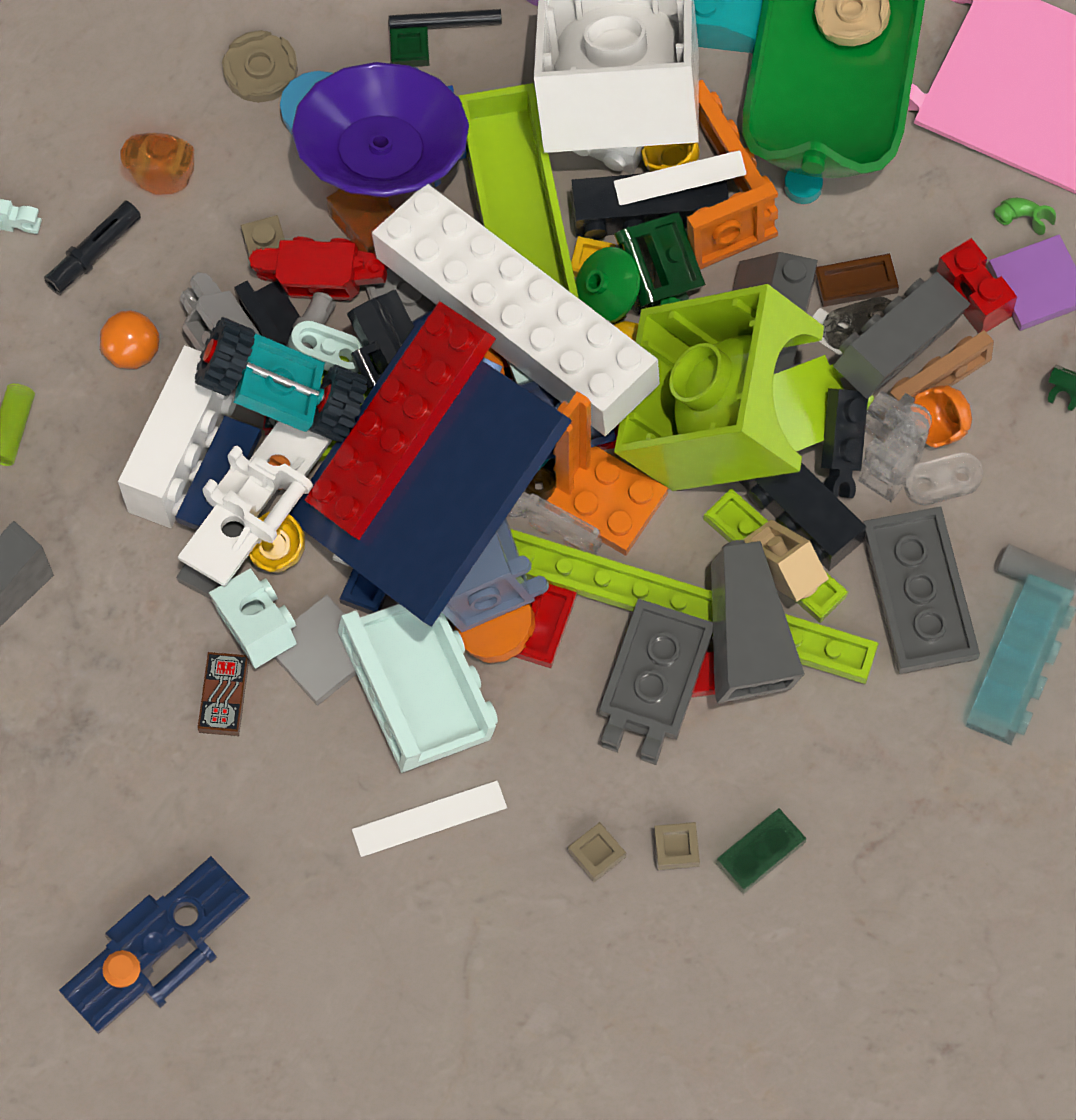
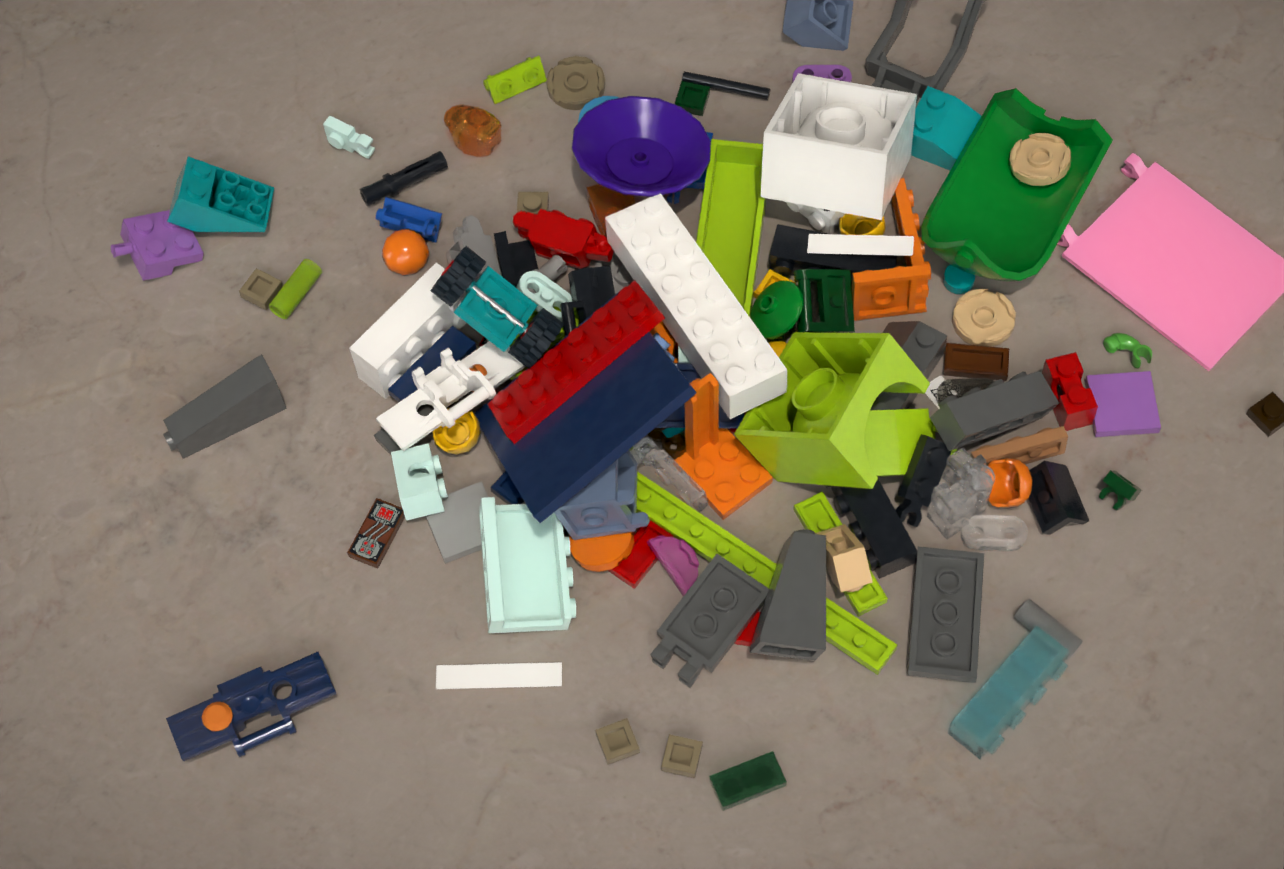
camera: 20 degrees right, 5 degrees down
(114, 295) = (402, 215): none -> blue hinge
(189, 80) = (515, 79): none -> lime hinge
(592, 620) = (677, 559): none -> magenta plate
(847, 224) = (983, 318): none -> tan tile
(999, 417) = (1055, 497): none -> black panel

